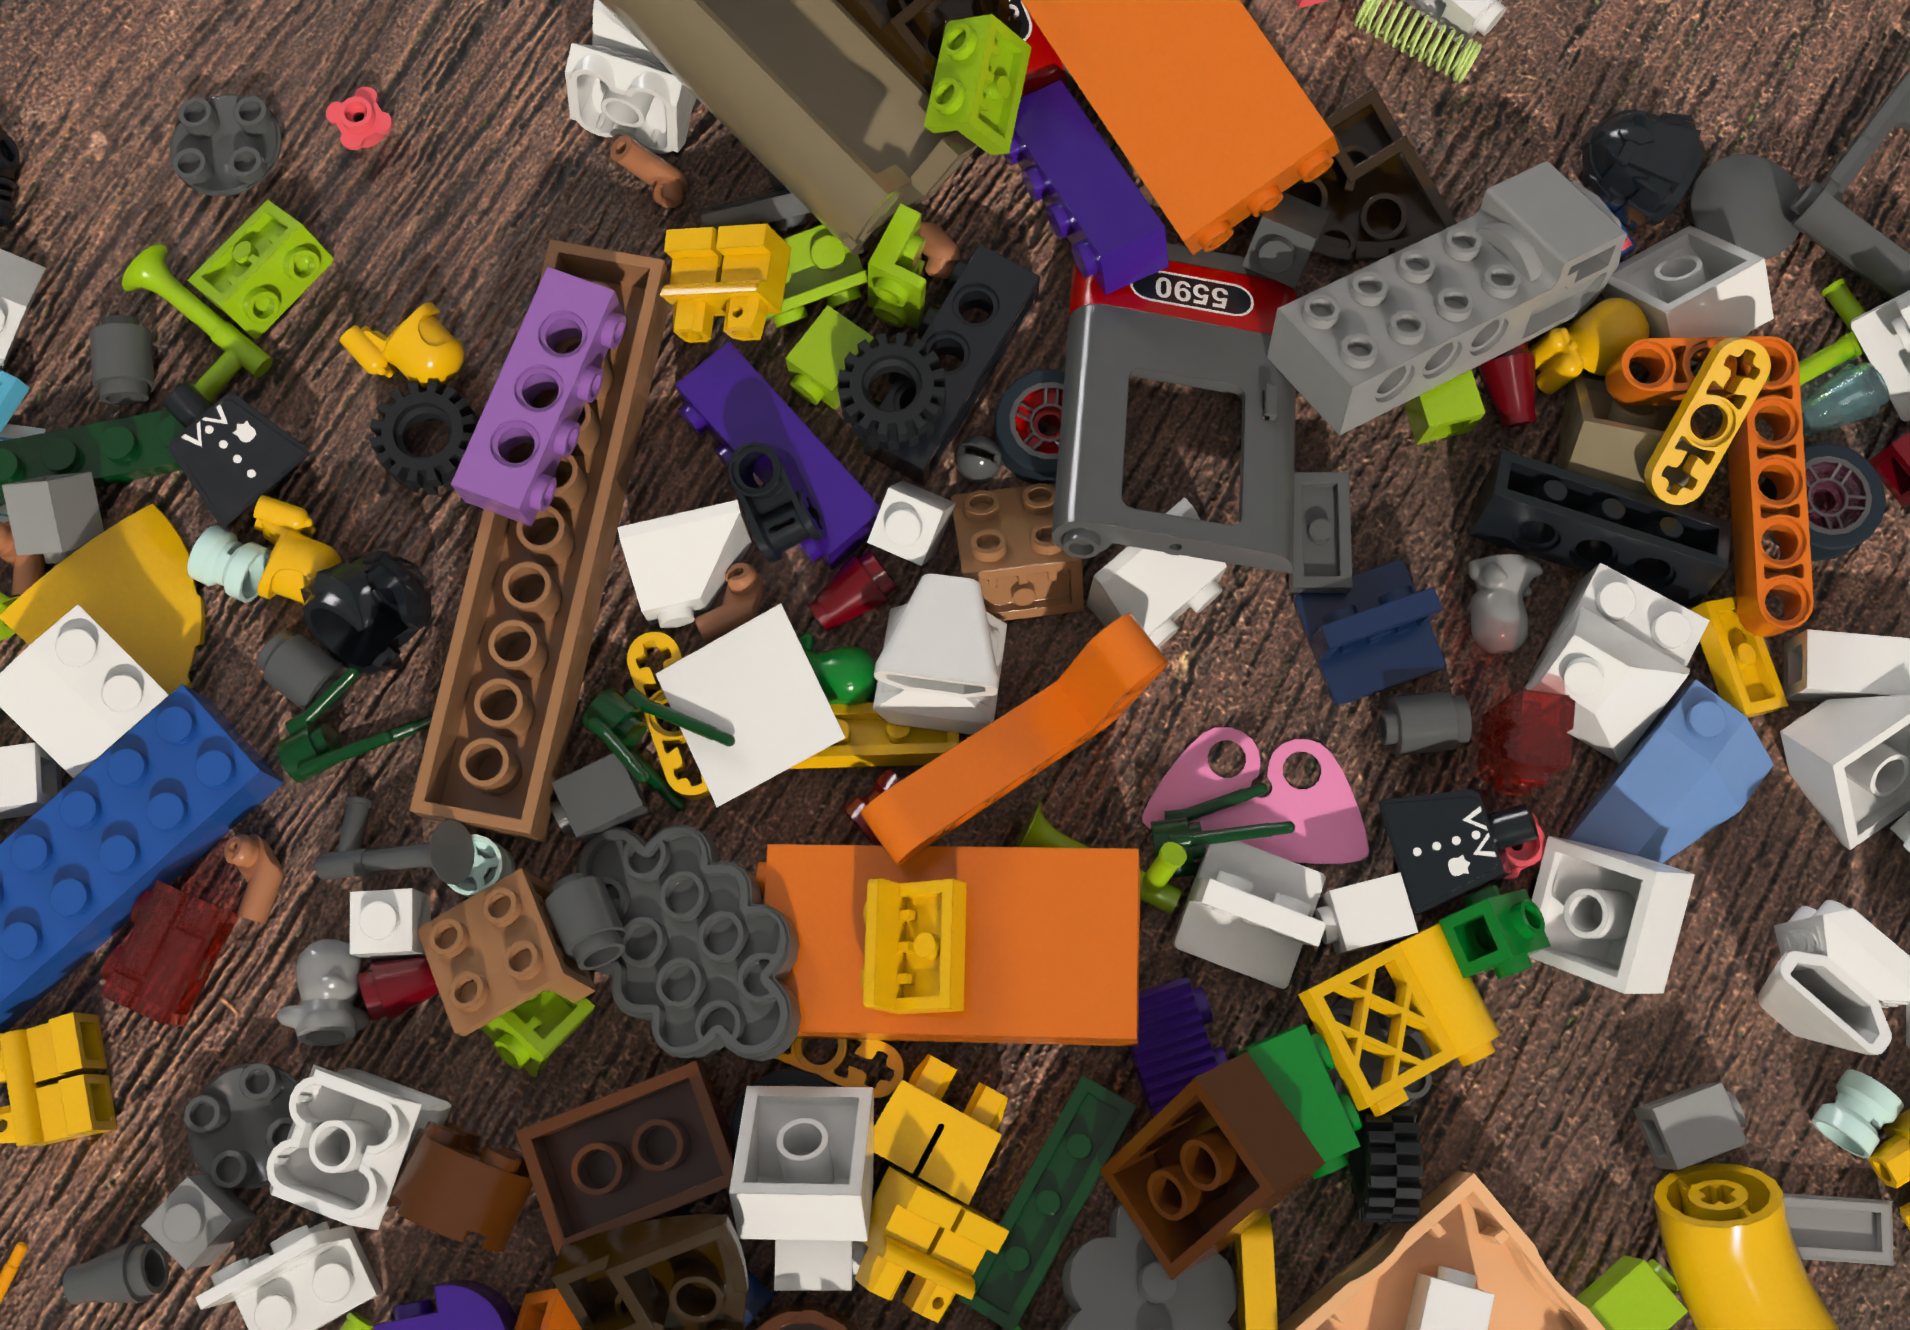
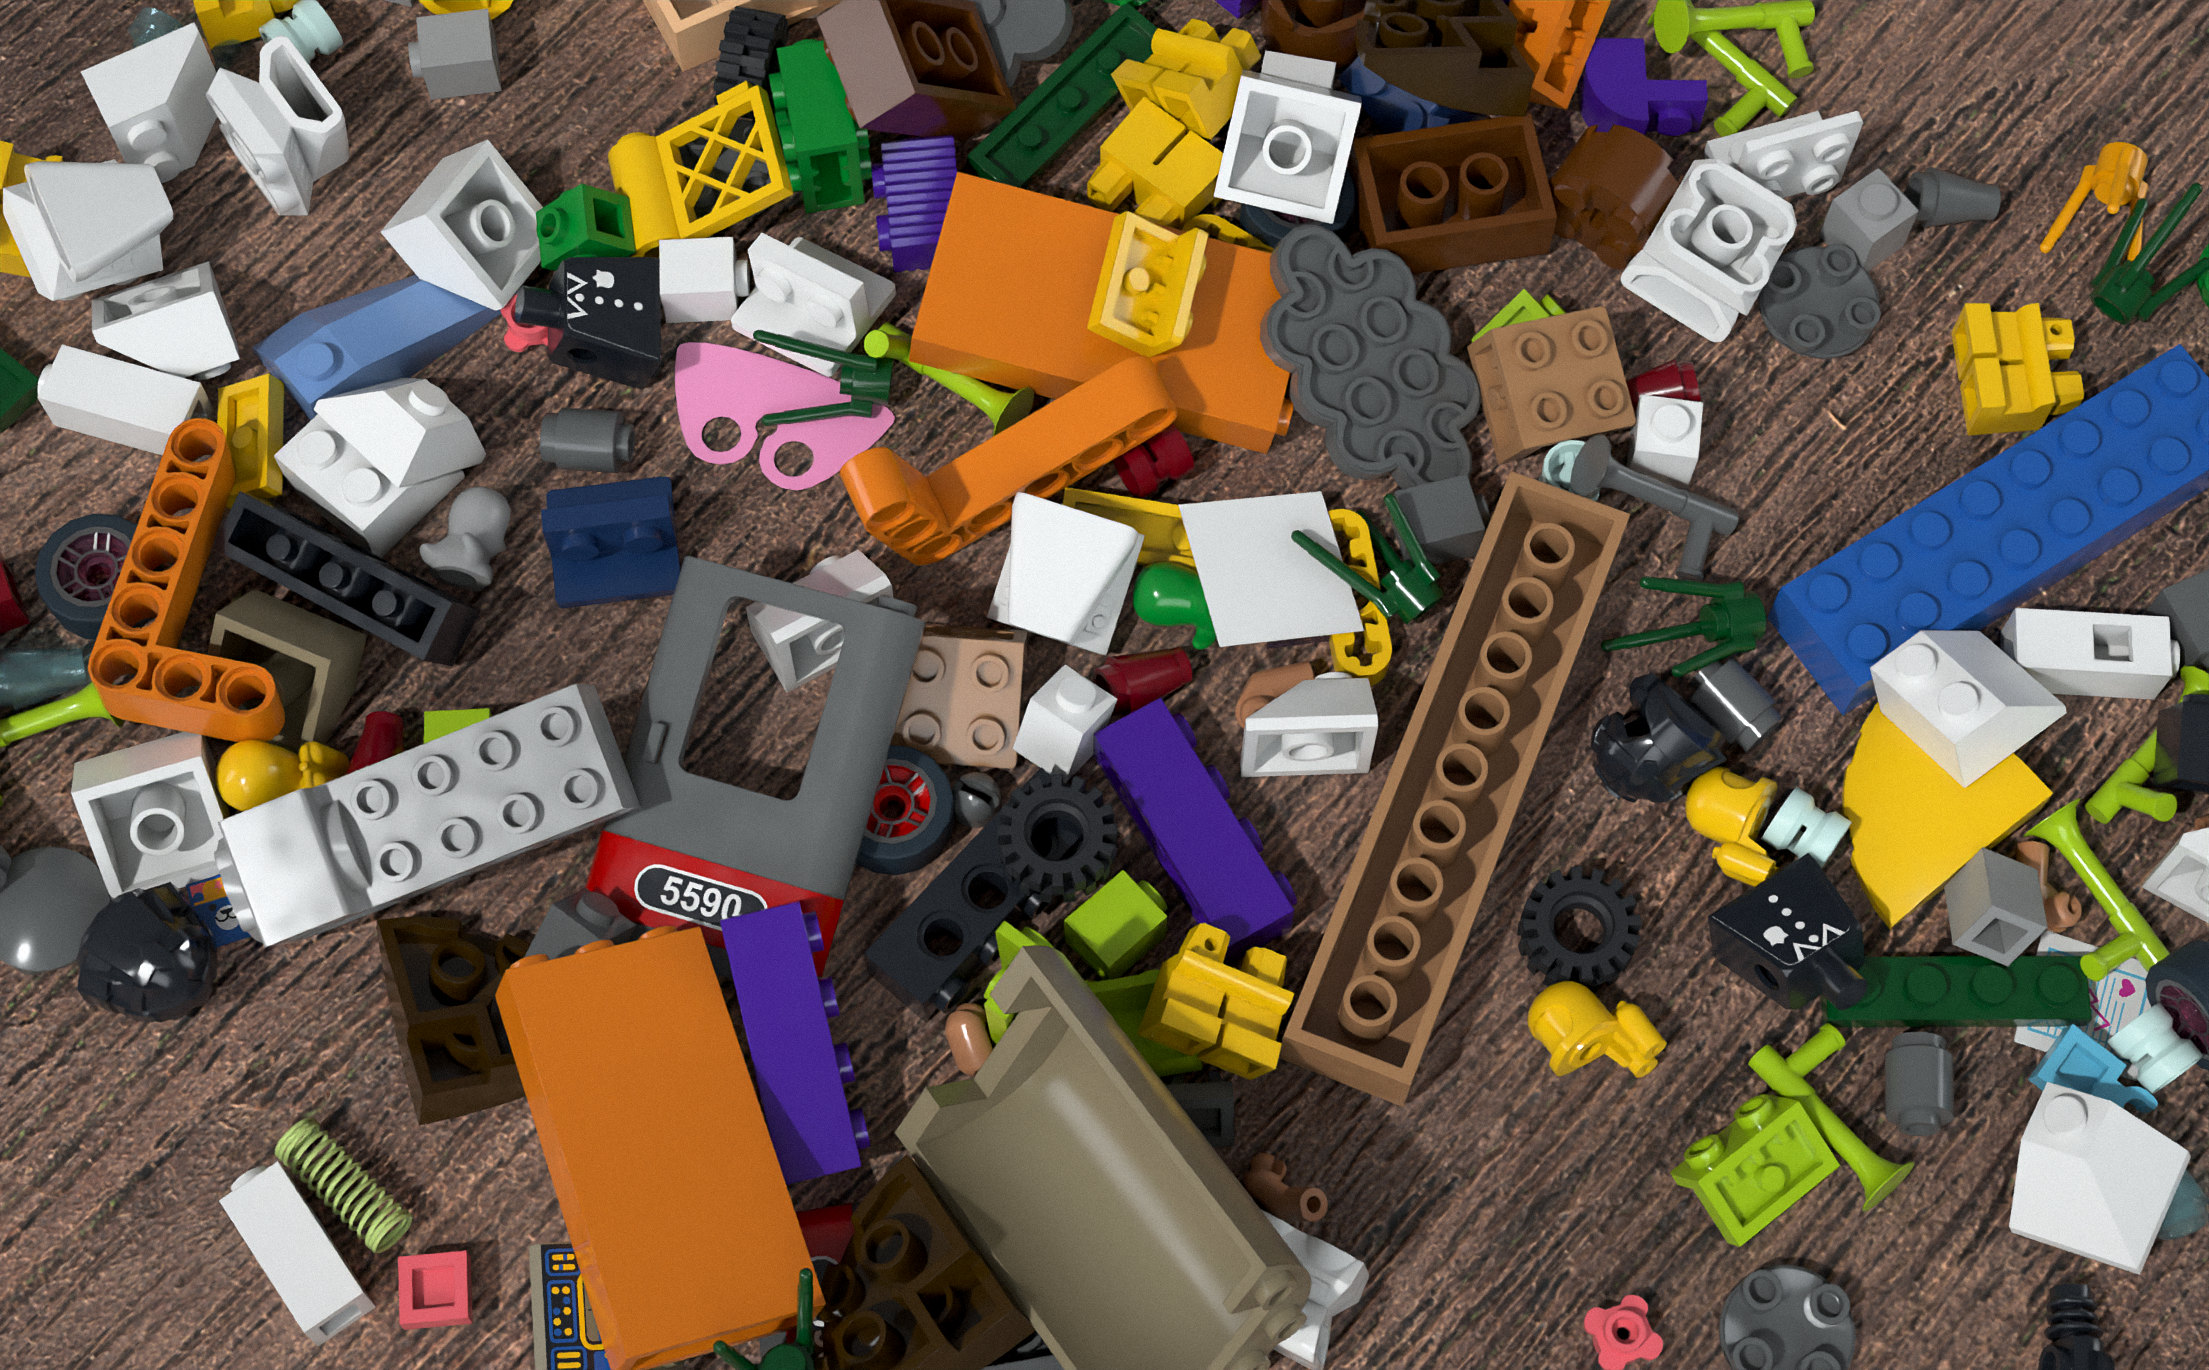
camera: 170 degrees left, 10 degrees down
(167, 953) = (1889, 459): clear red brick -> none
(261, 872) = (1793, 526): nougat arm -> none
(327, 993) = (1732, 394): light grey animal -> none
(559, 310) = (1401, 975): medium lavender brick -> none
(586, 920) = (1466, 392): dark grey brick -> none
(783, 509) = (1201, 740): black piece -> none
(979, 82) = (884, 1169): lime bracket -> none
(1321, 533) = (632, 633): dark grey plate -> none
(1525, 741) = (498, 384): clear red brick -> none
(1733, 414) = (197, 642): yellow beam -> none

